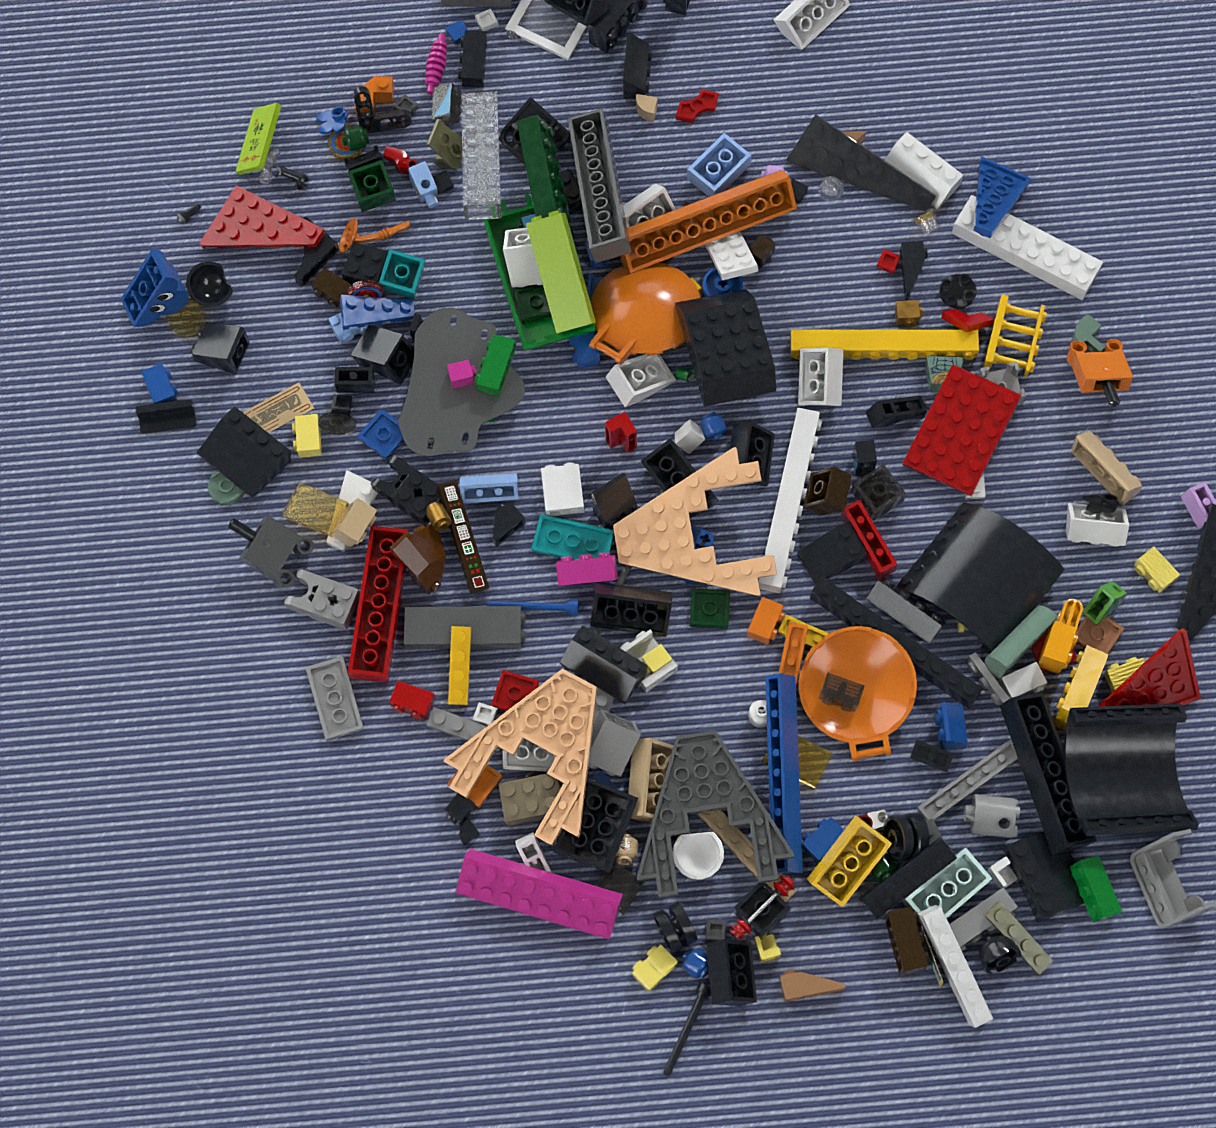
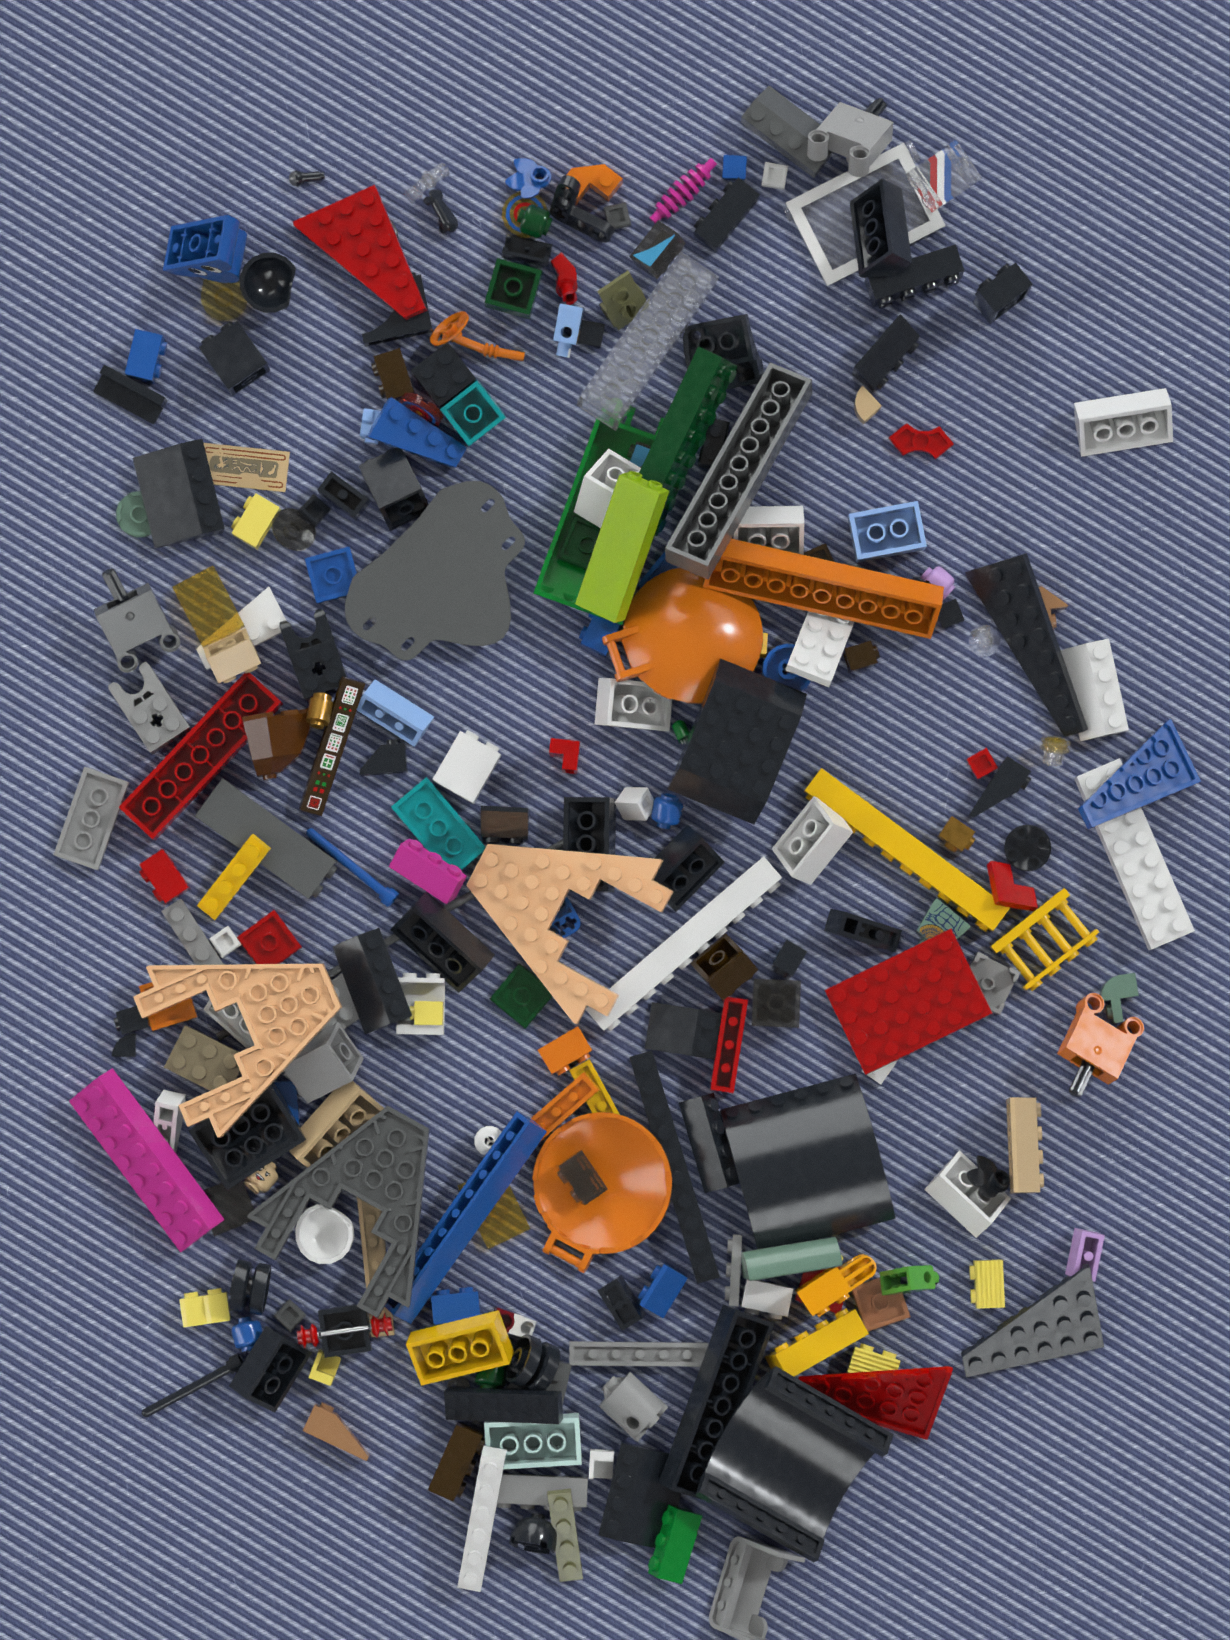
camera: 35 degrees right, 15 degrees up
(258, 138) = (434, 146): lime tile -> none
(416, 322) = (449, 479): black tile -> none
(461, 373) = (451, 574): dark pink brick -> none
(495, 365) = (492, 589): green brick -> none
(932, 960) = (467, 1496): sticker -> none

